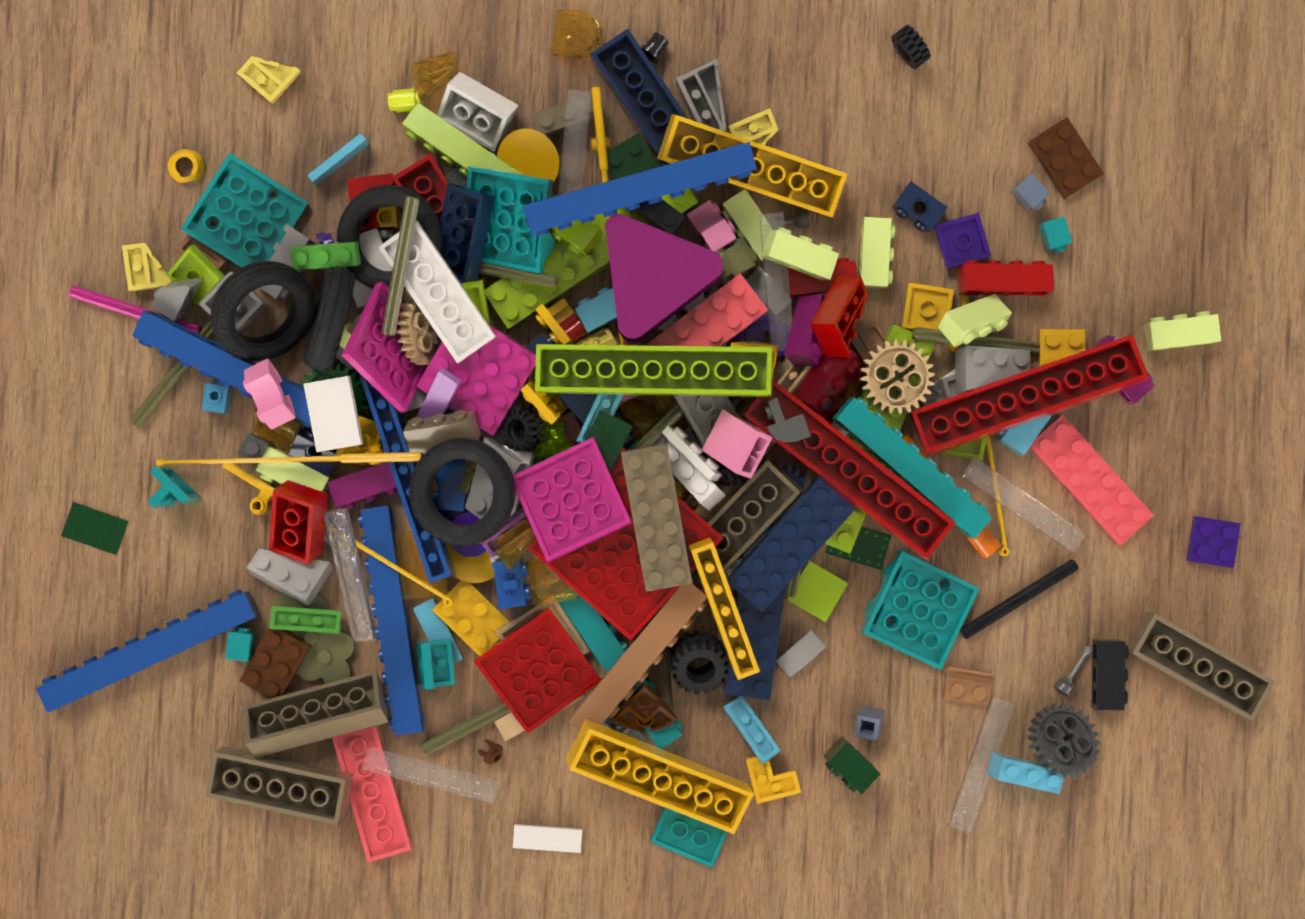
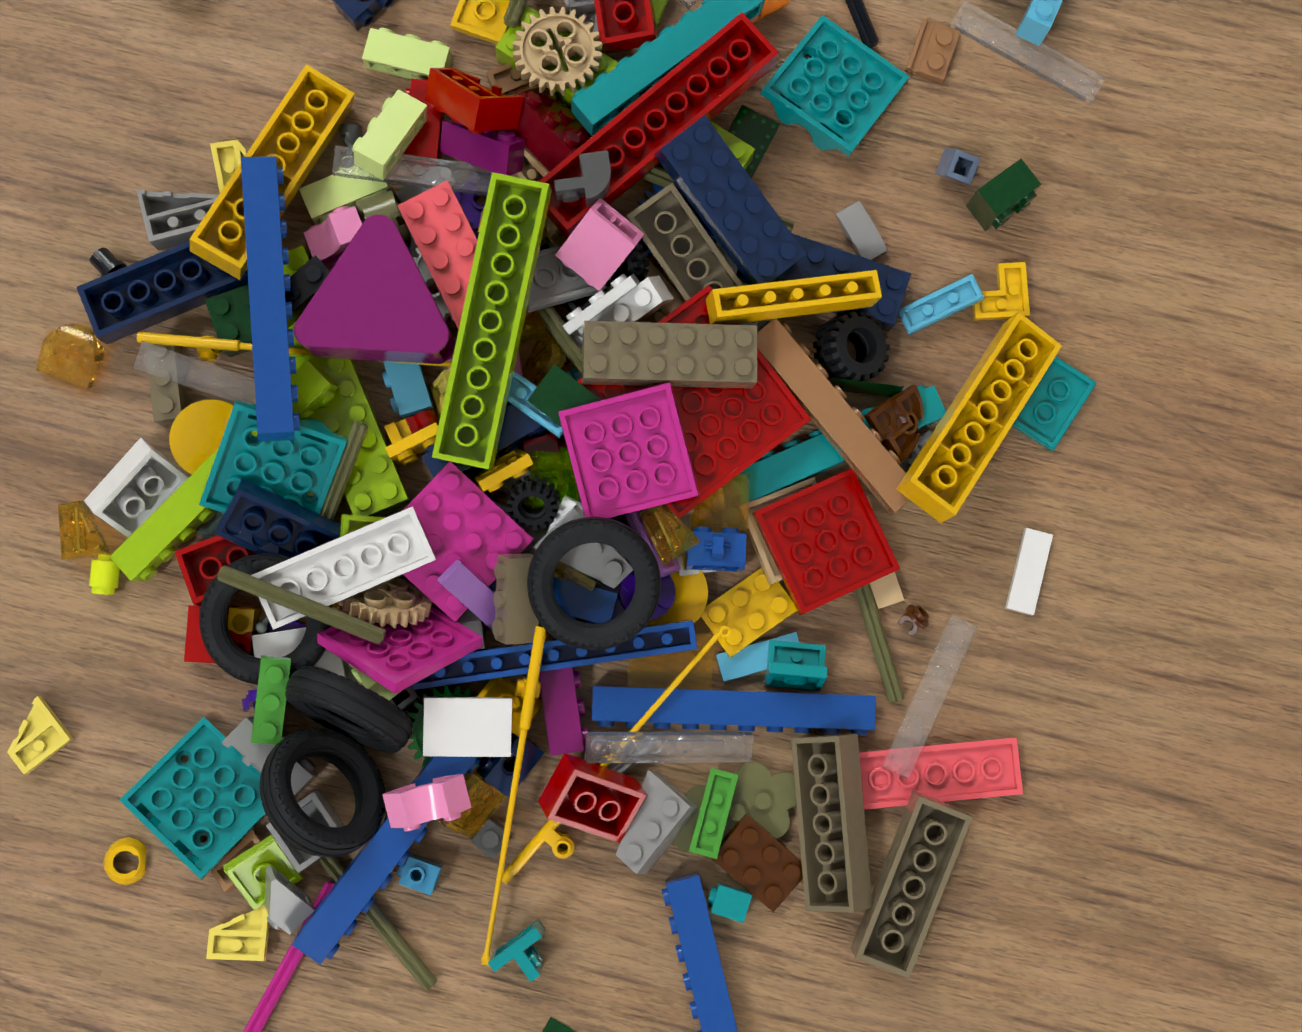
camera: 85 degrees left, 5 degrees down
(291, 471) = (528, 793): yellowish green brick -> none
(338, 159) = (158, 668): medium azure tile -> none
(818, 591) = (795, 197): lime tile -> none

